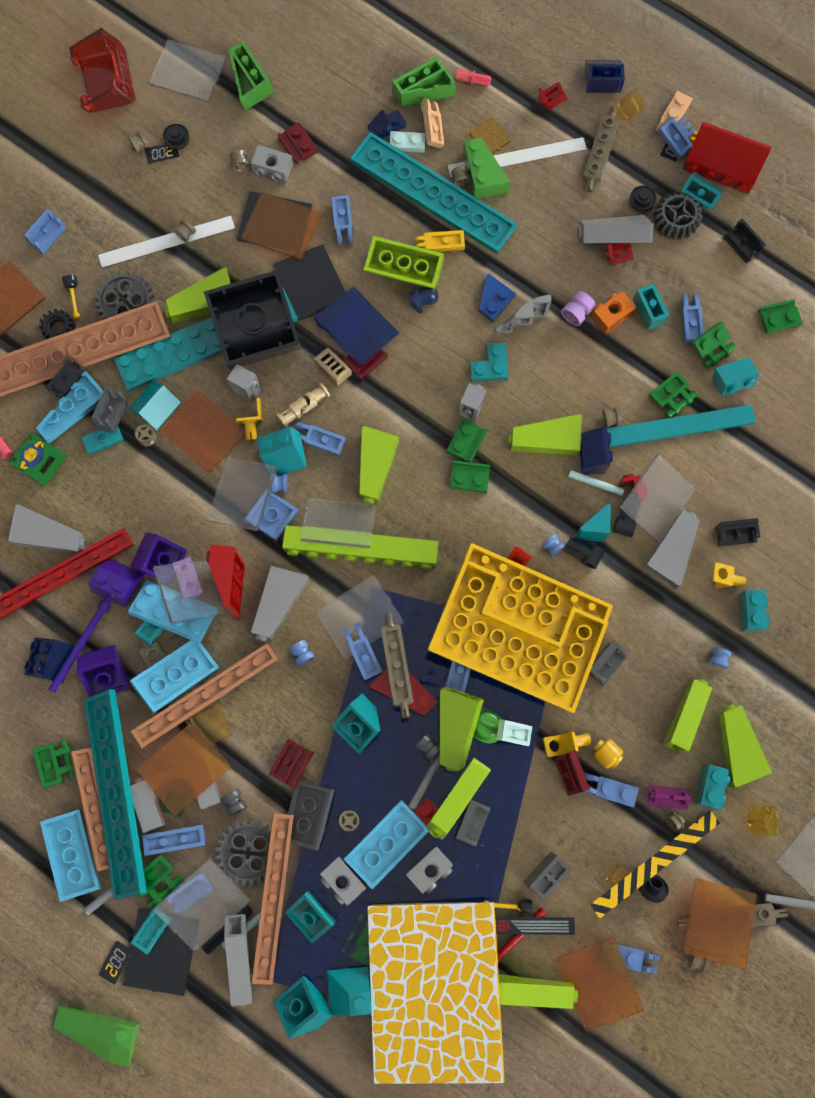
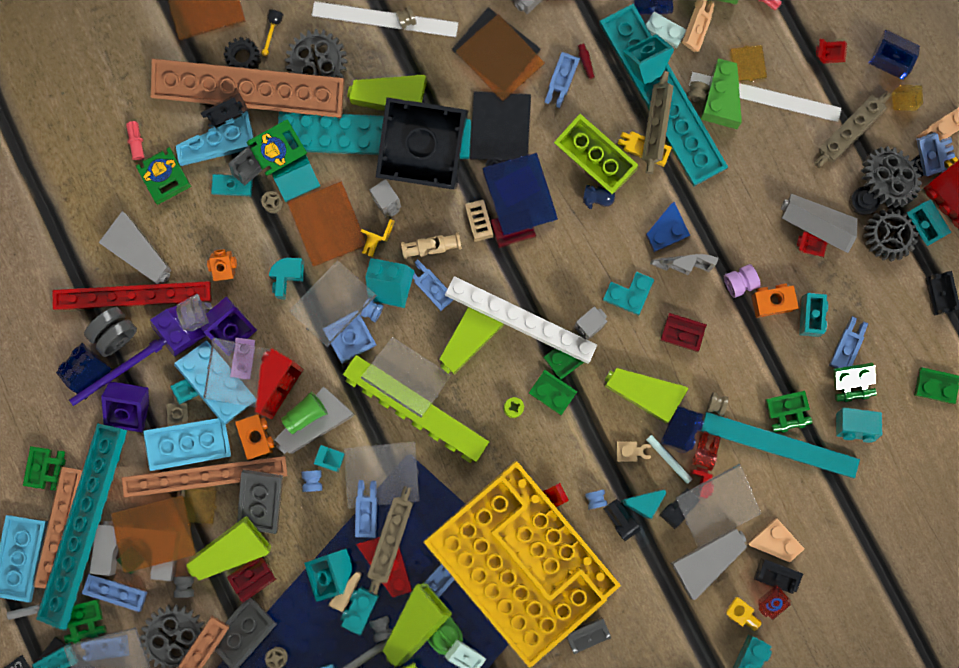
camera: 30 degrees right, 5 degrees up
(56, 611) = (110, 331): none -> dark grey wheel
(123, 559) = (193, 313): none -> clear brick
(125, 388) = (274, 149): none -> green container
(131, 514) = (222, 265): none -> orange brick
(187, 486) = (283, 270): none -> teal brick
(221, 634) = (246, 428): none -> orange brick
(260, 746) = (232, 548): none -> lime slope
(264, 692) = (260, 499): none -> dark grey plate
(266, 595) = (304, 413): none -> bright green plant
(306, 626) = (329, 458): none -> teal panel
(354, 195) = (586, 61): none -> dark red animal
(380, 741) = (341, 601): none -> tan slope
(401, 740) = (360, 610): none -> teal brick
(407, 166) = (649, 58): none -> teal slope
(411, 427) = (521, 320): none -> white plate
(441, 214) = (657, 123): none -> dark tan plate
(443, 508) = (512, 410): none -> lime wheel
(552, 373) = (683, 332): none -> dark red plate
(559, 493) = (629, 451): none -> tan plate
(624, 463) = (704, 456): none -> clear red piece
(653, 169) = (891, 177): none -> dark grey gear
(721, 505) = (777, 542): none -> light nougat wing
(746, 555) = (774, 602): none -> clear red brick

